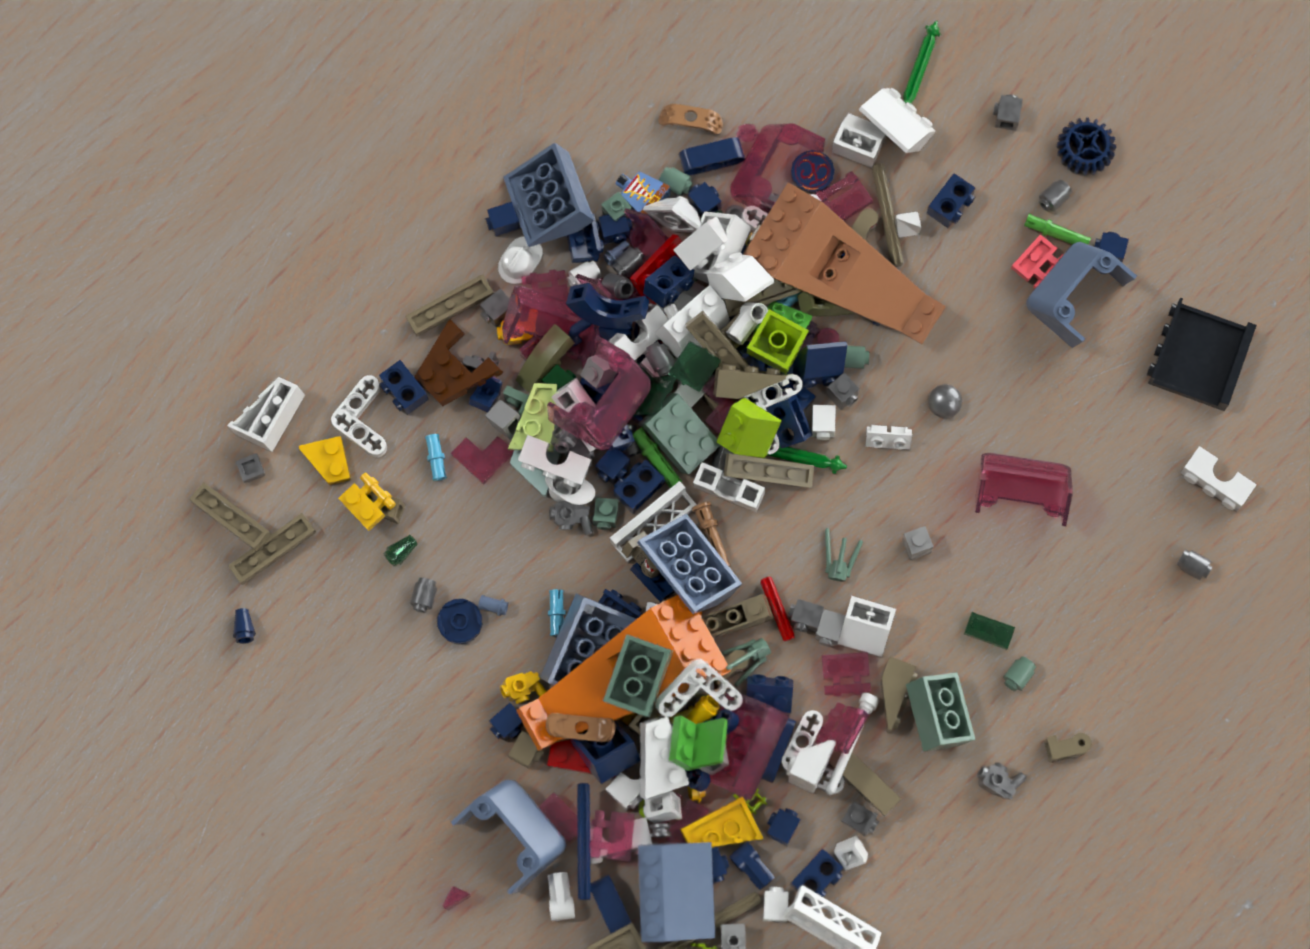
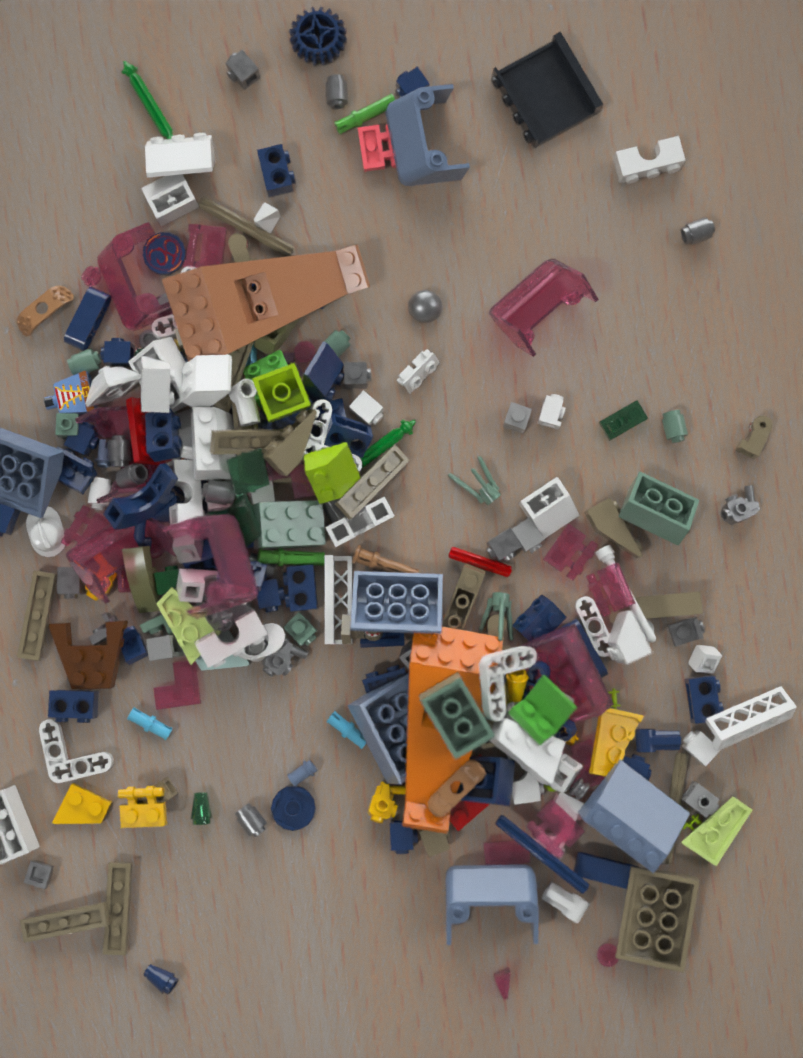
camera: 50 degrees left, 10 degrees up
(783, 825) = (646, 693): dark blue brick -> none
(946, 566) = (552, 411): none -> white brick

